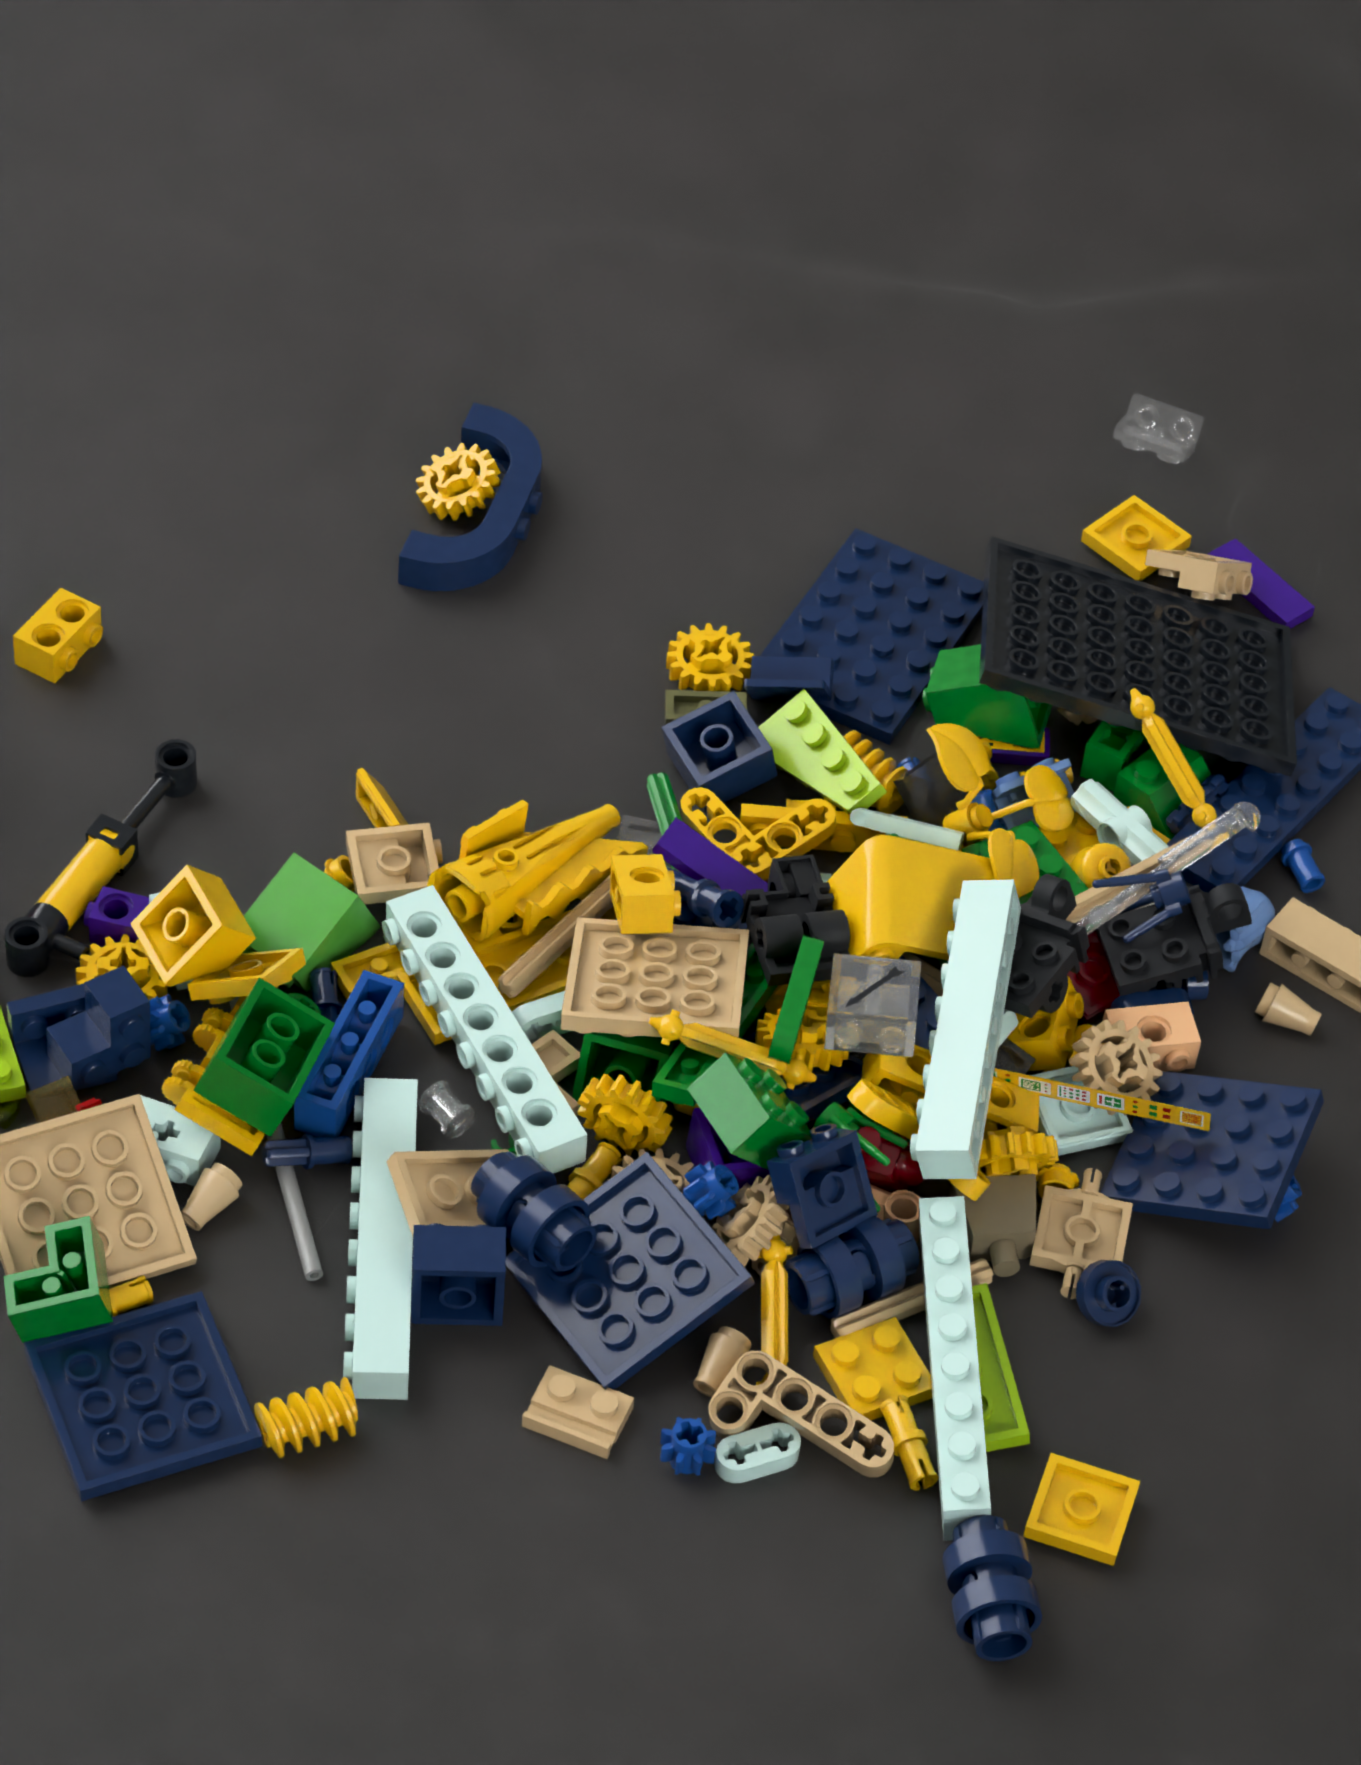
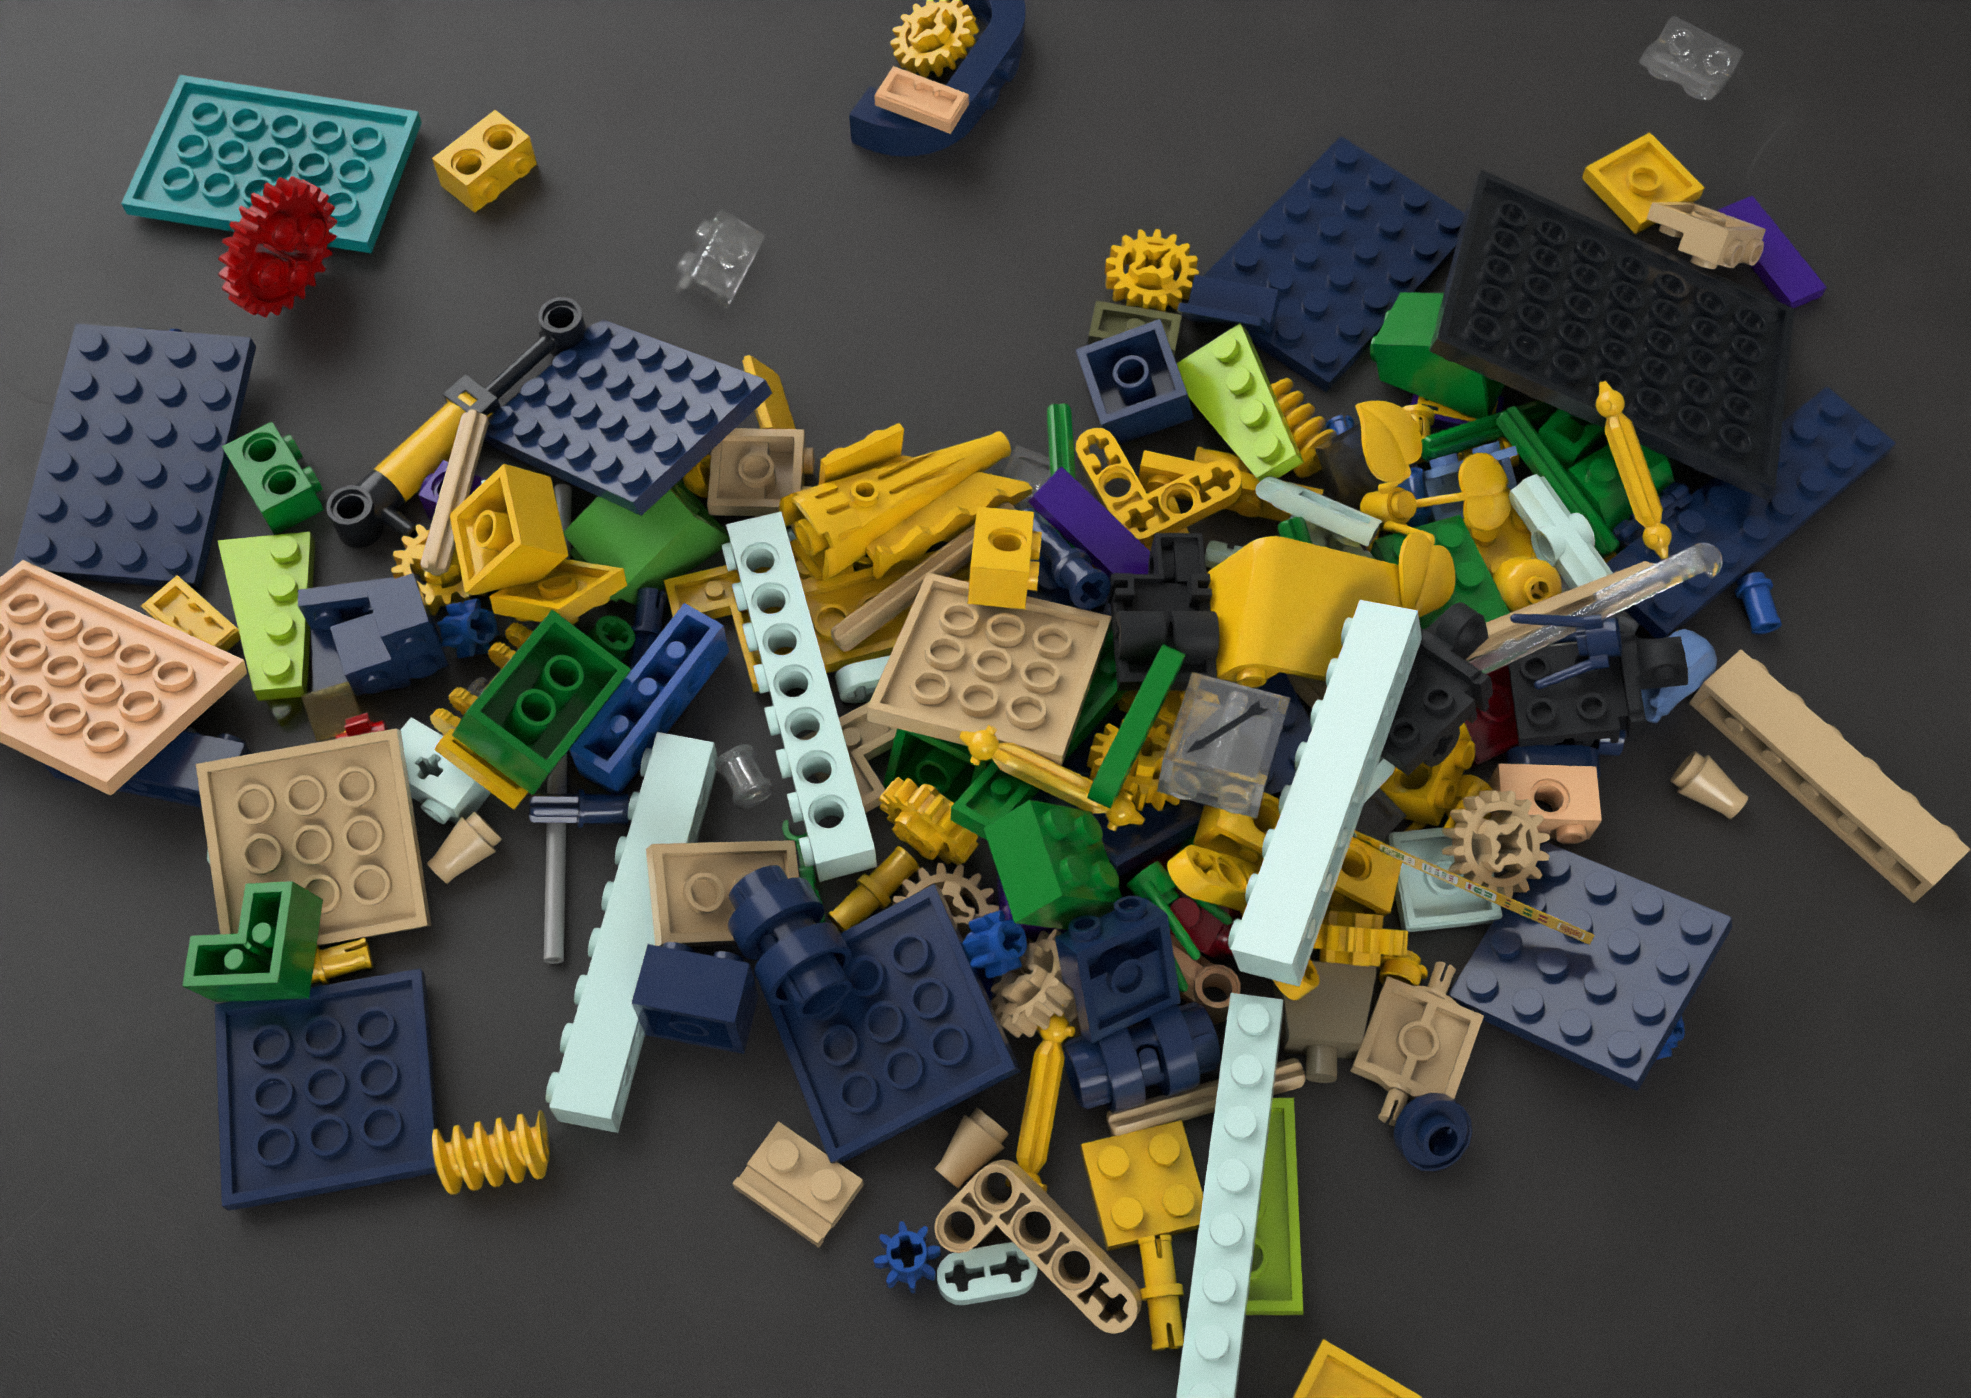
camera: 15 degrees right, 15 degrees up
(125, 904) = (454, 491): none -> tan axle
(266, 823) = (624, 414): none -> dark blue plate
(304, 693) = (720, 259): none -> clear bracket
(466, 534) = (921, 99): none -> light nougat plate
(1054, 746) = (1479, 431): none -> green axle
(1090, 767) = (1544, 463): none -> green axle

